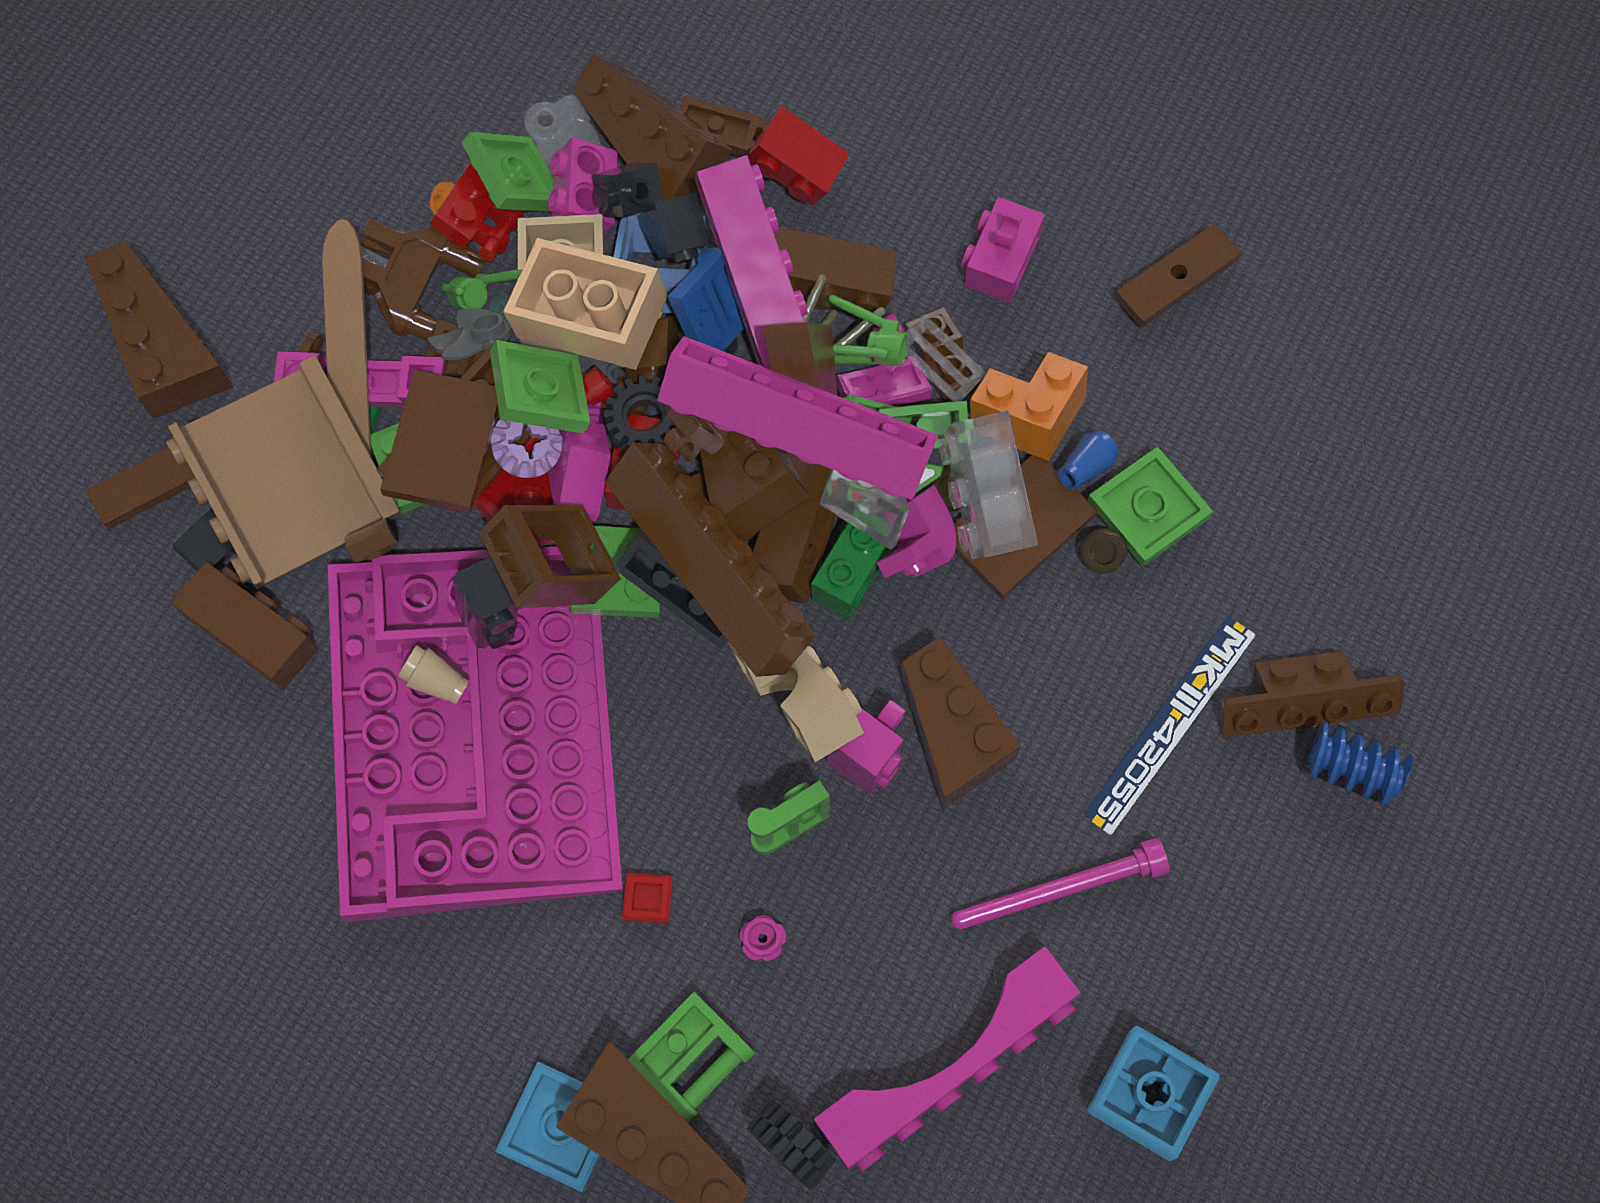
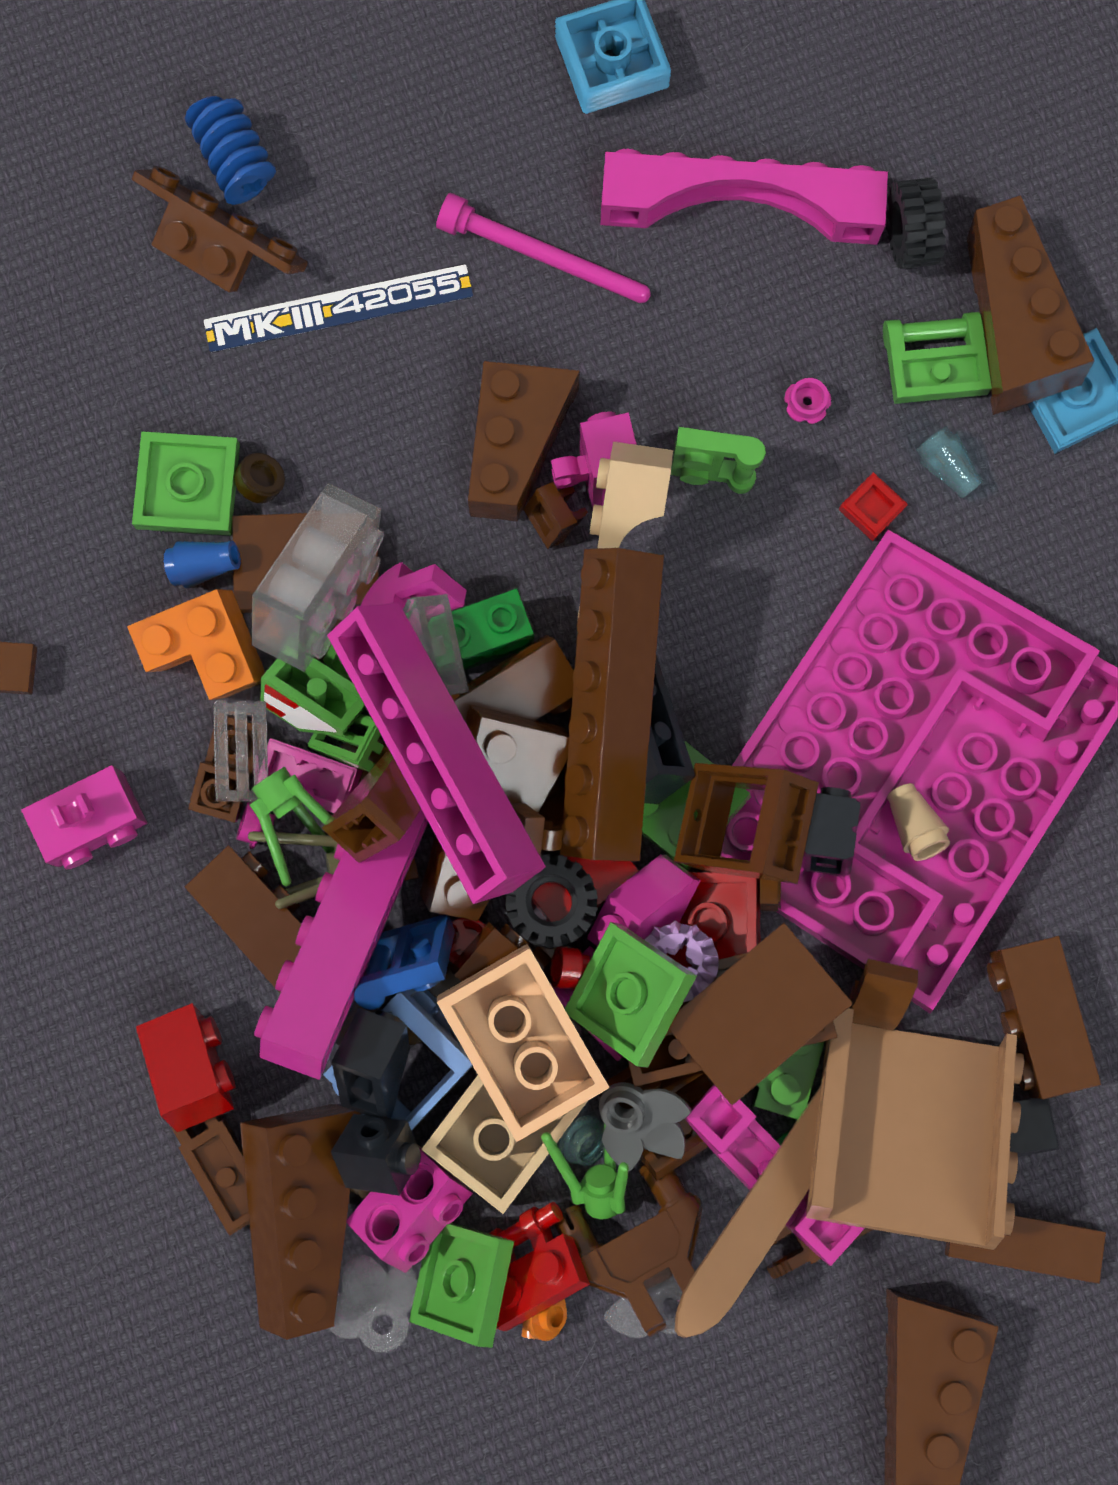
camera: 145 degrees left, 10 degrees up
(616, 977) = (949, 461): none -> clear light blue cone
(875, 690) = (552, 515): none -> reddish brown tile

